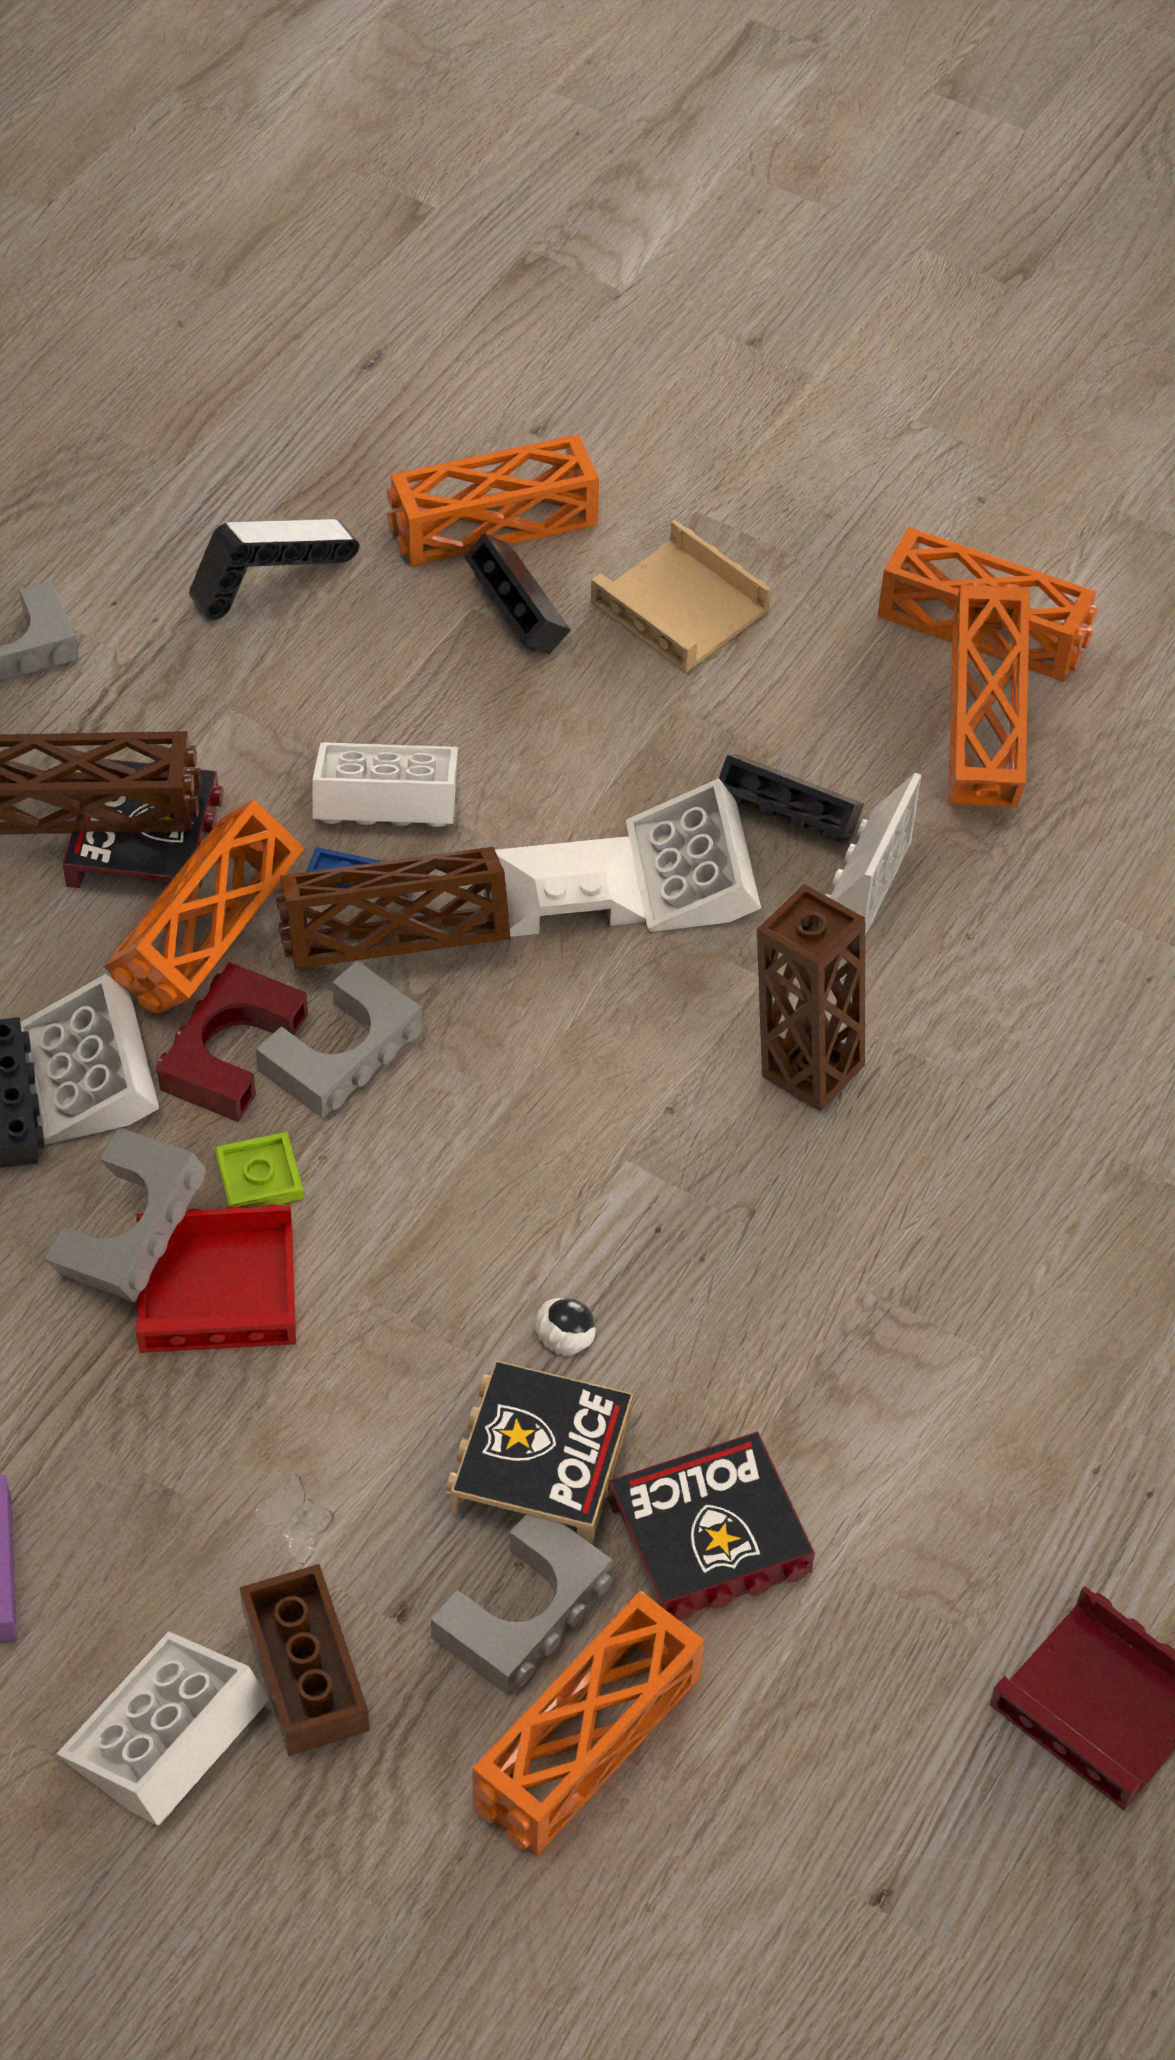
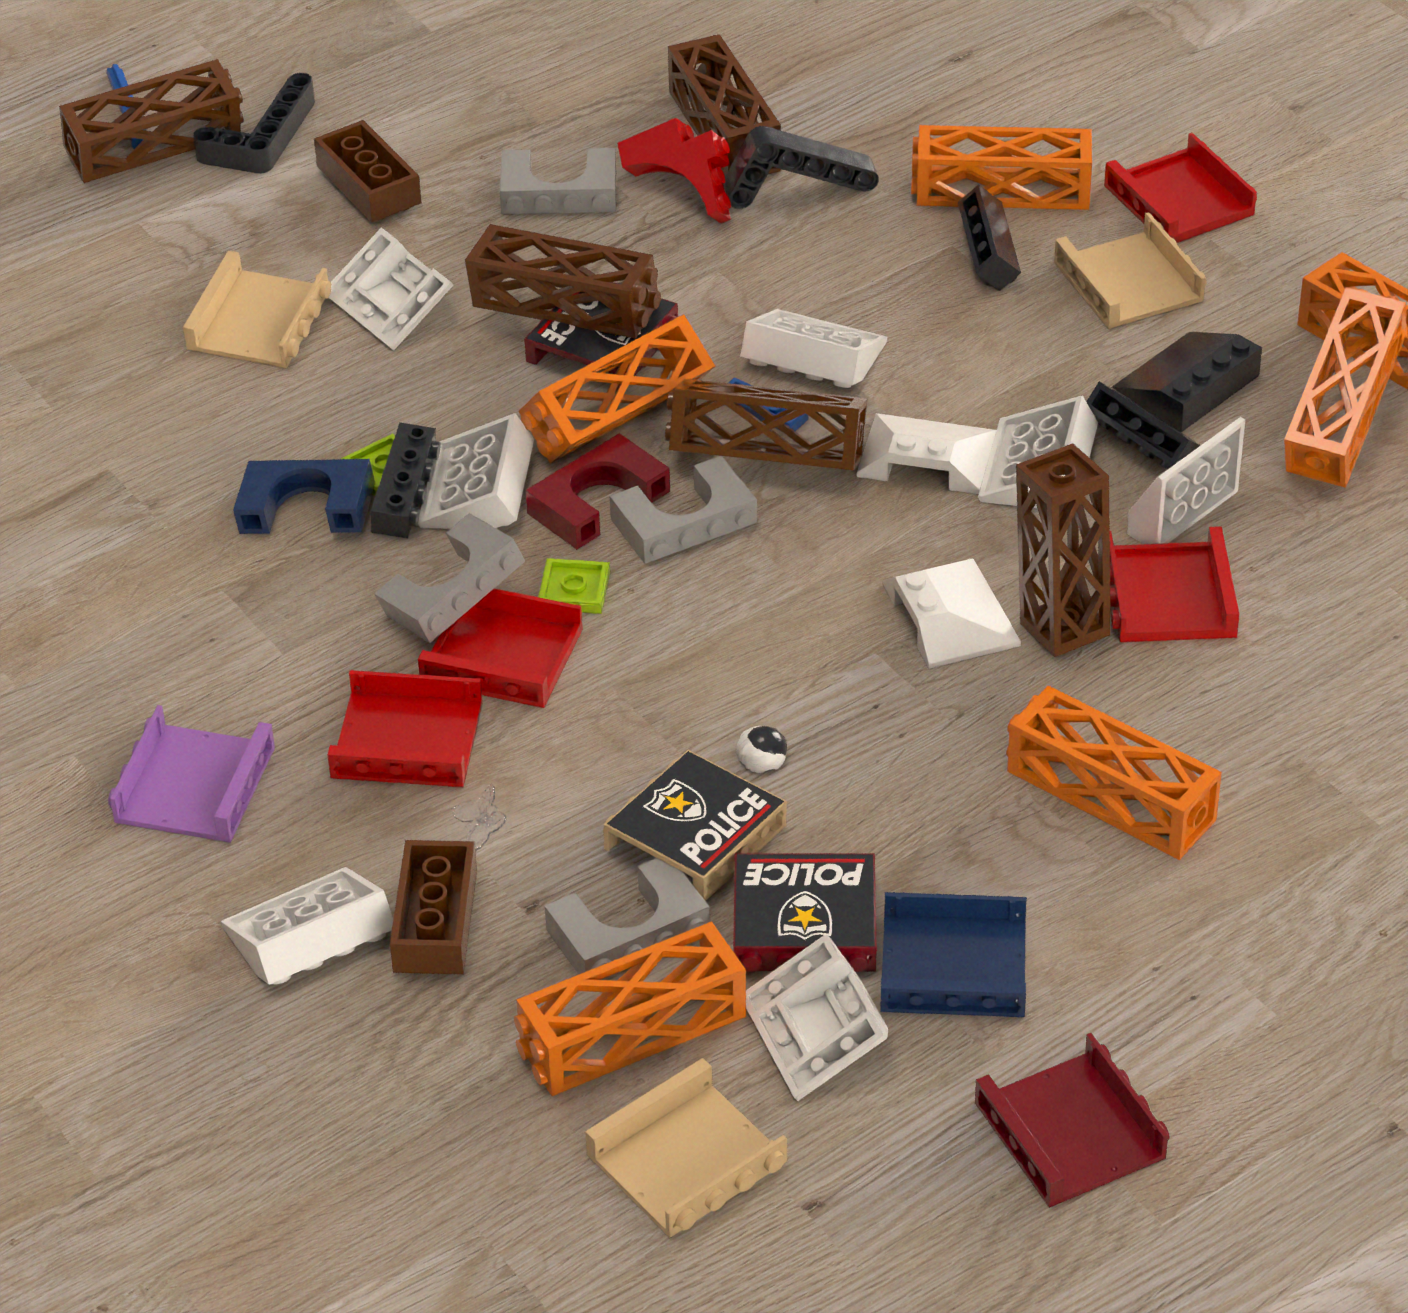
camera: 25 degrees right, 10 degrees down
(106, 453) = (715, 73): none -> reddish brown piece
(121, 570) = (677, 151): none -> red arch
(157, 1426) = (407, 729): none -> red panel
(688, 1084) = (953, 613): none -> white slope
(689, 477) = (1183, 191): none -> red panel
(720, 1882) = (682, 1150): none -> tan panel
(787, 1662) = (814, 1016): none -> white slope
(801, 712) = (1193, 376): none -> black slope
(888, 1529) = (954, 954): none -> dark blue panel
(918, 990) = (1173, 590): none -> red panel
(941, 1263) = (1037, 741): none -> orange piece

